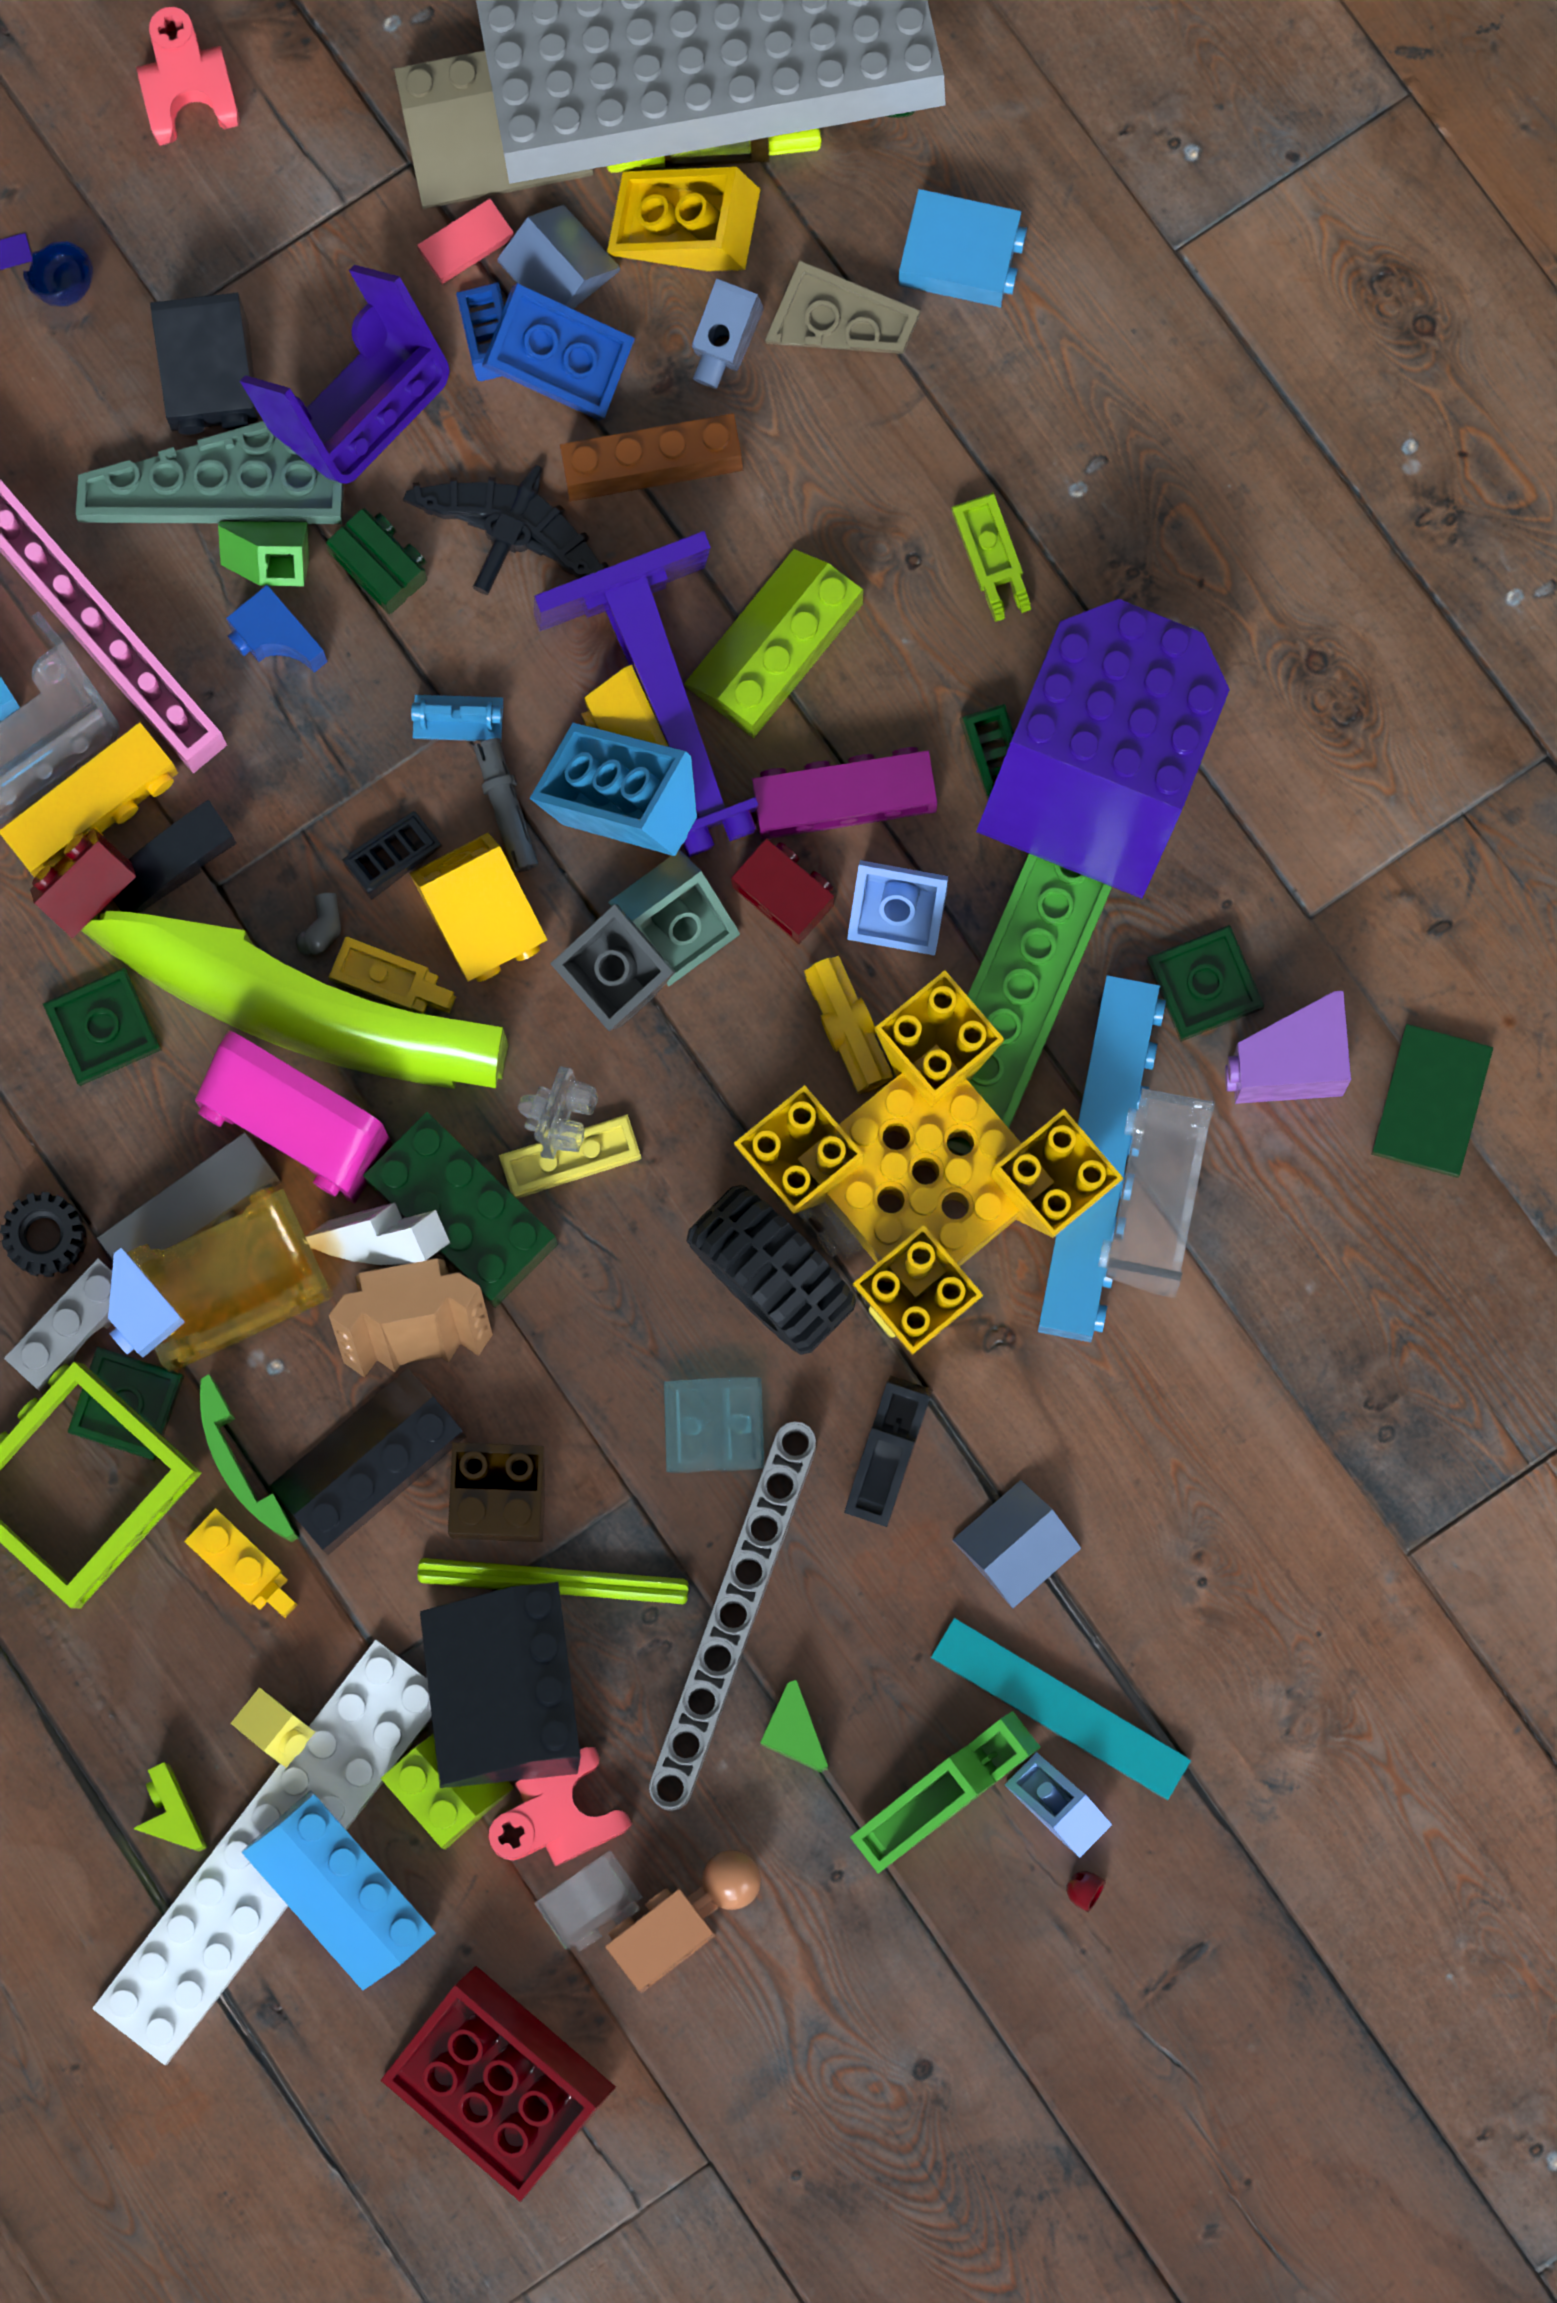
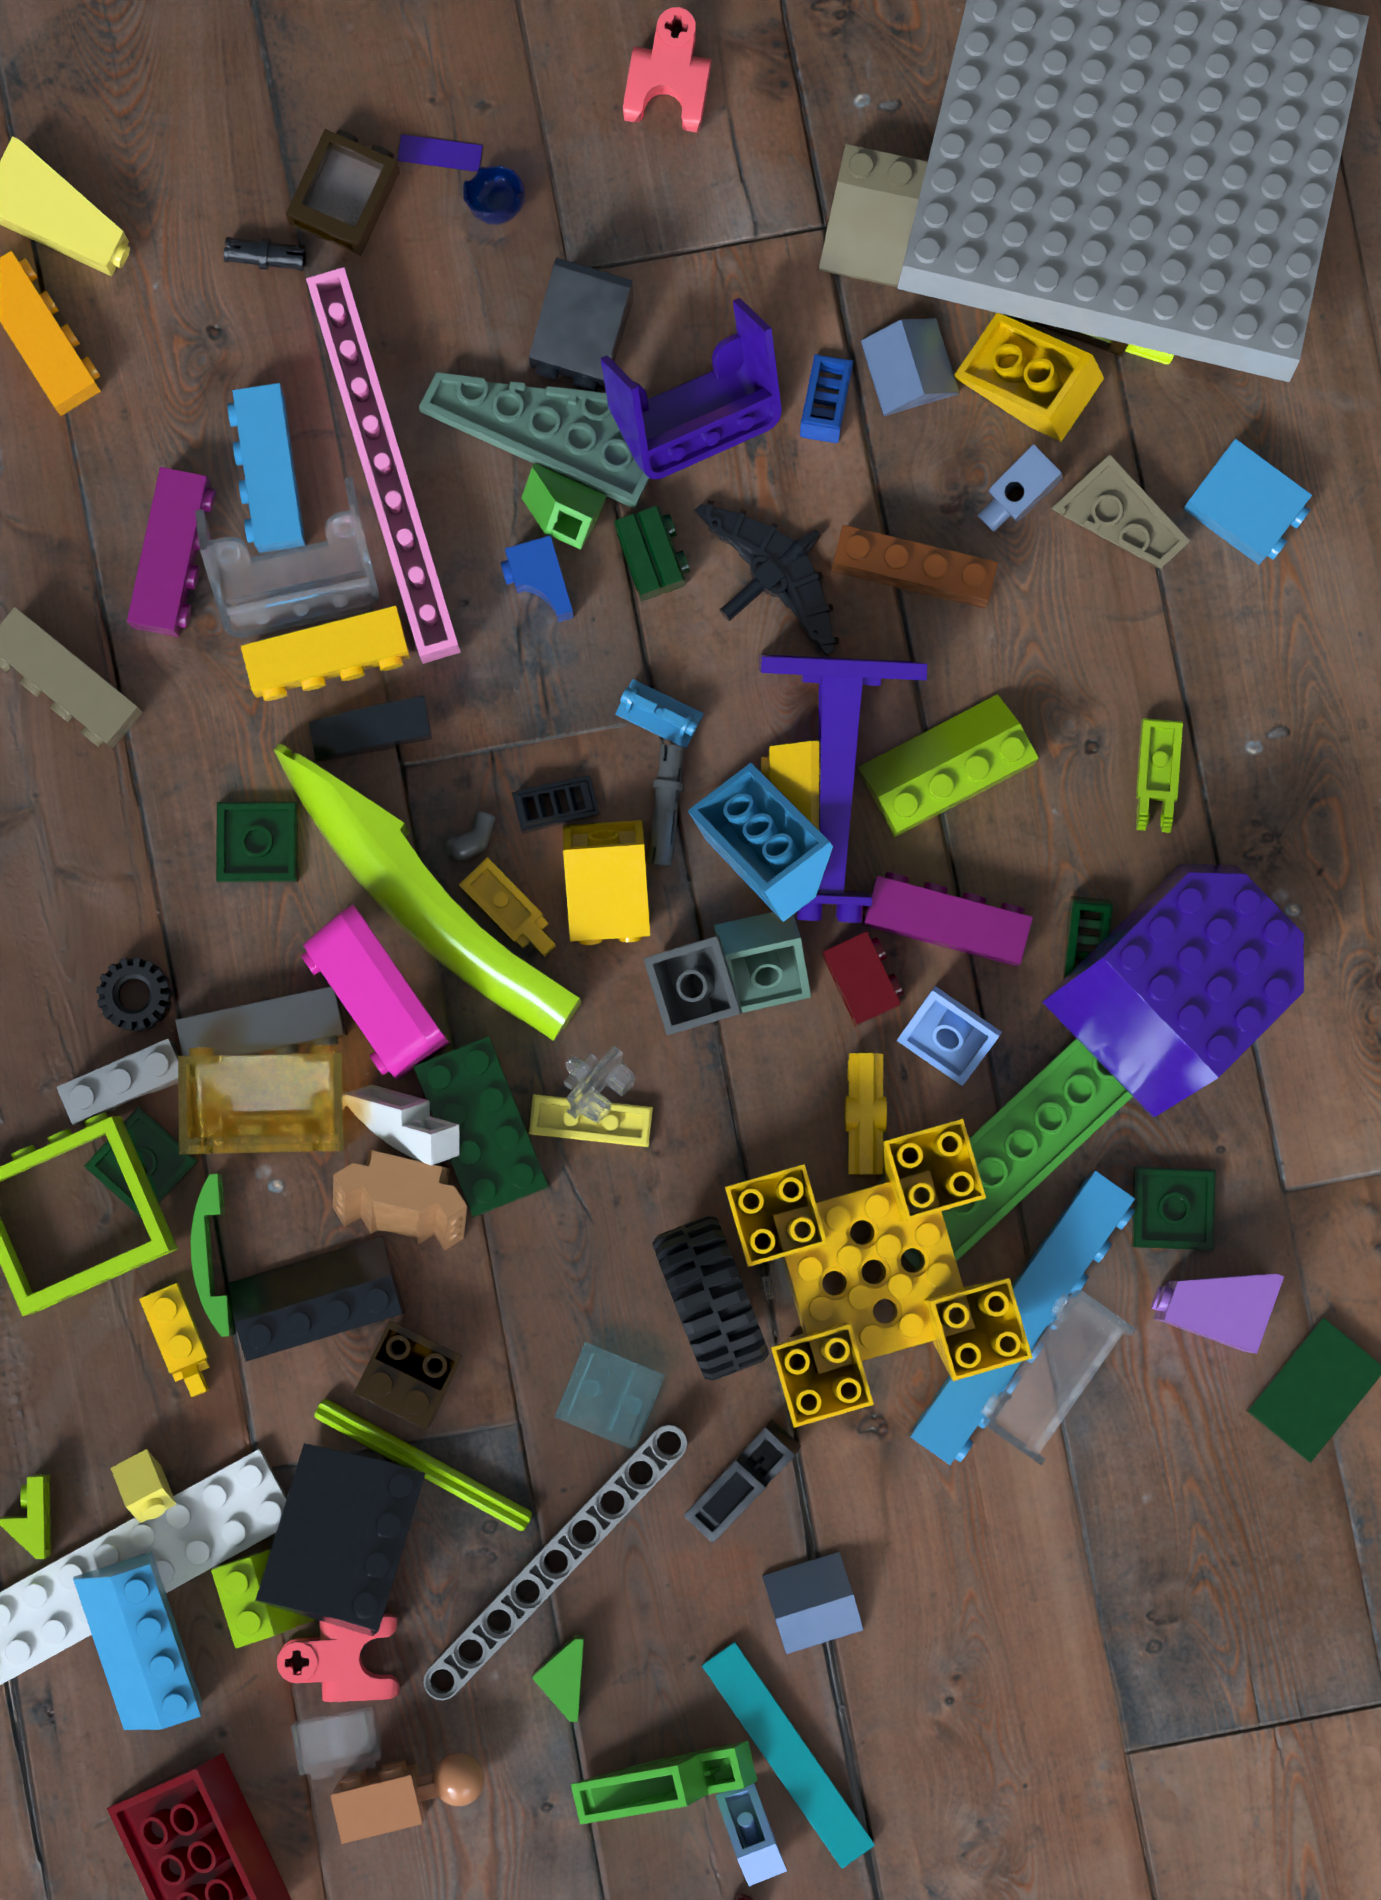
camera: 15 degrees right, 5 degrees up
(81, 881) = (290, 719): dark red brick -> none
(138, 1308) = (179, 1101): light blue slope -> none
(465, 241) = (841, 314): coral tile -> none
(558, 352) = (876, 444): blue plate -> none

